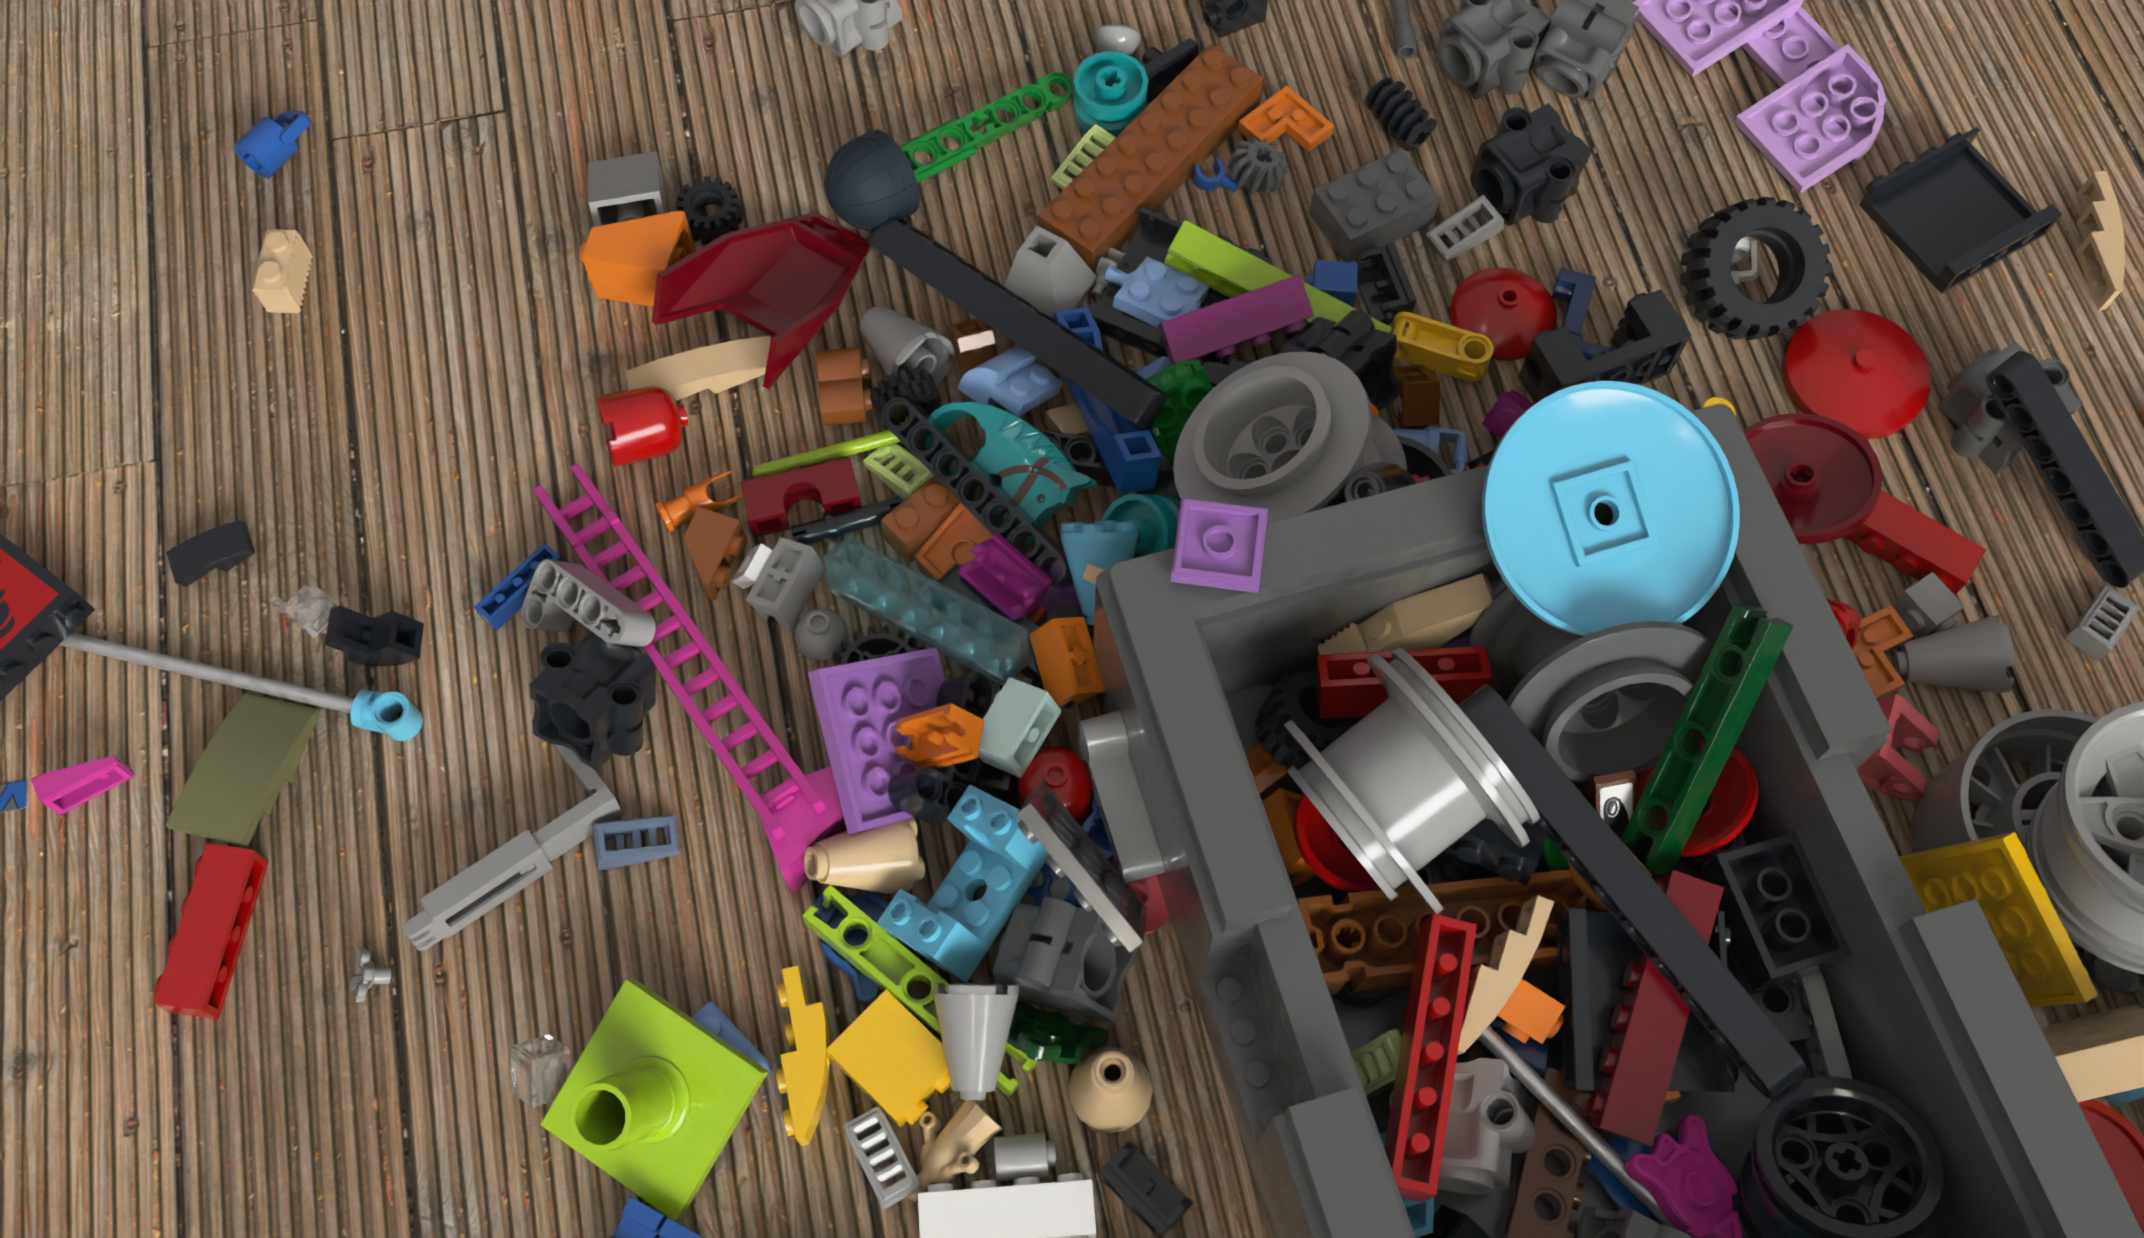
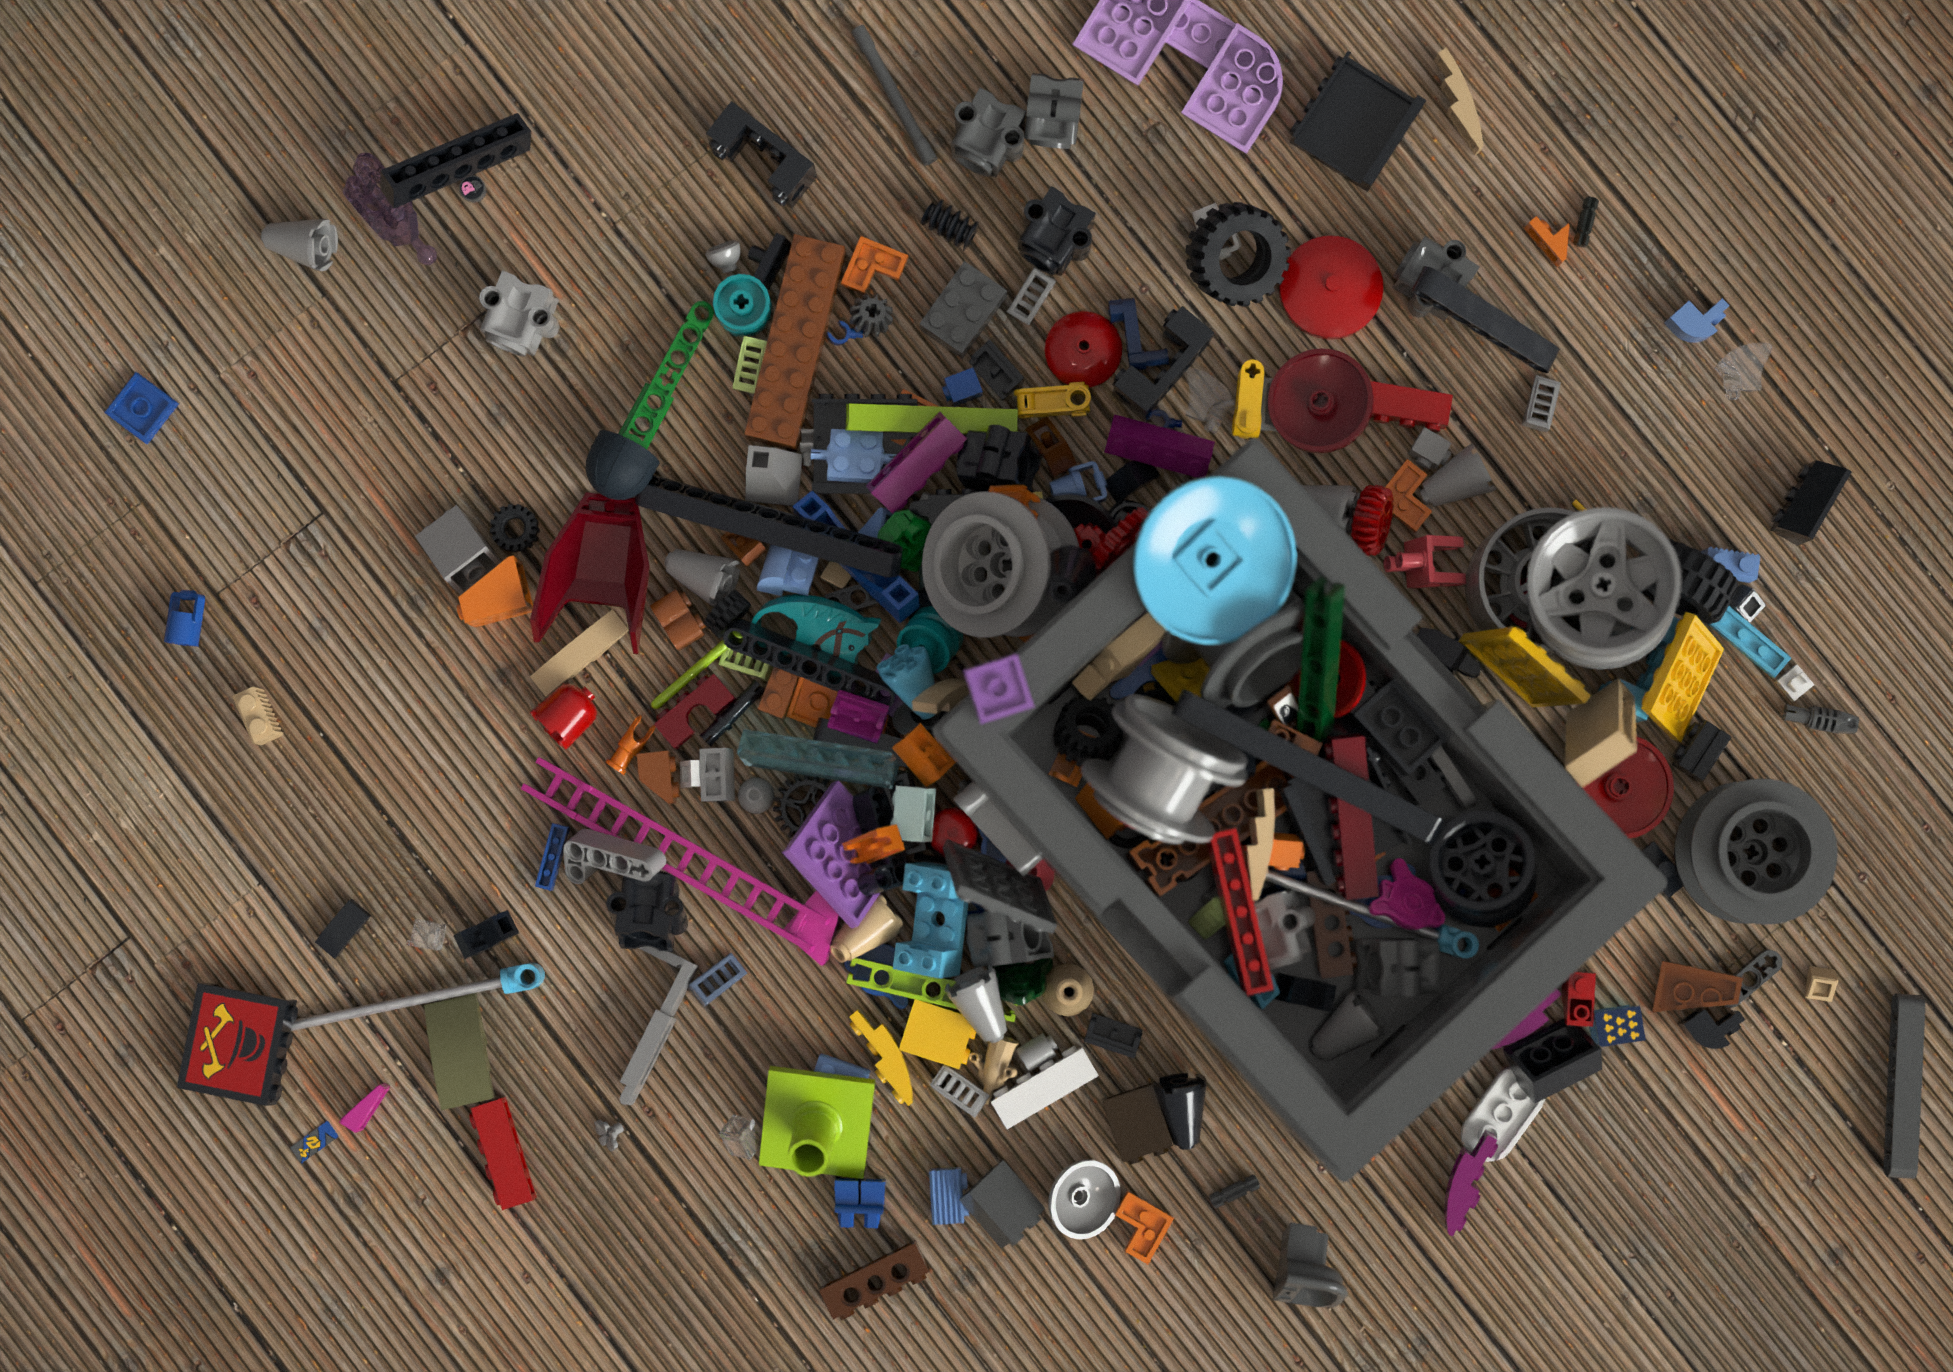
camera: 20 degrees left, 20 degrees up
(1351, 688) = (1149, 680): red brick -> none

